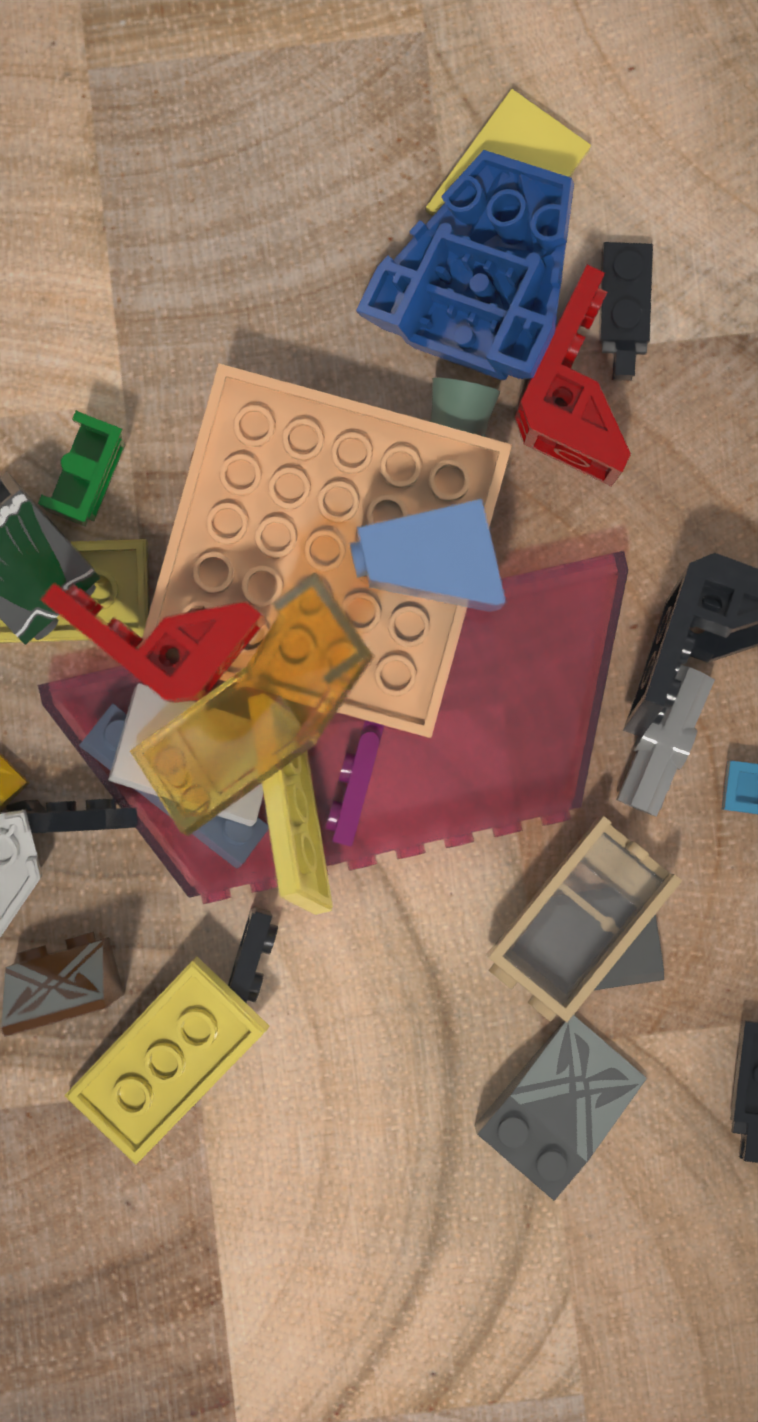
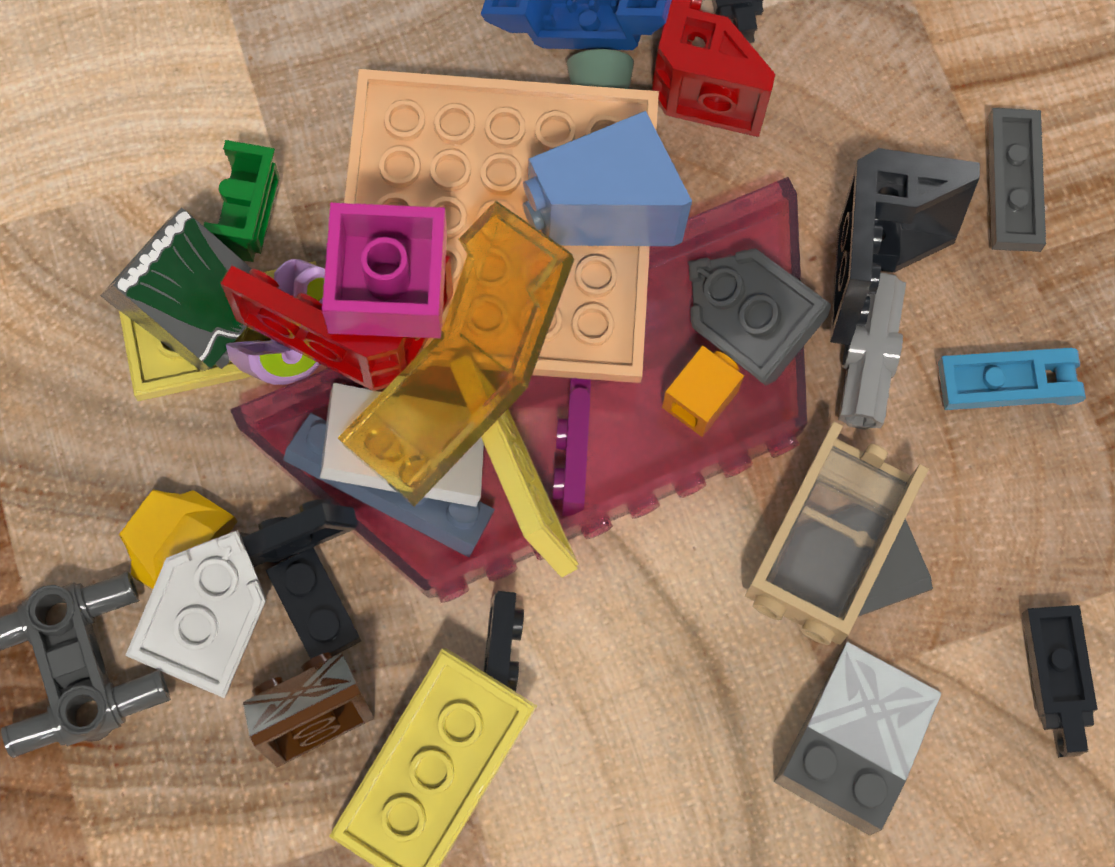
camera: 15 degrees left, 15 degrees down
(86, 881) = (313, 604): none -> black plate
(120, 589) = (270, 359): none -> lavender animal
(194, 631) = (385, 270): none -> dark pink brick
(492, 750) = (703, 390): none -> light orange brick
(556, 682) = (754, 311): none -> dark grey tile

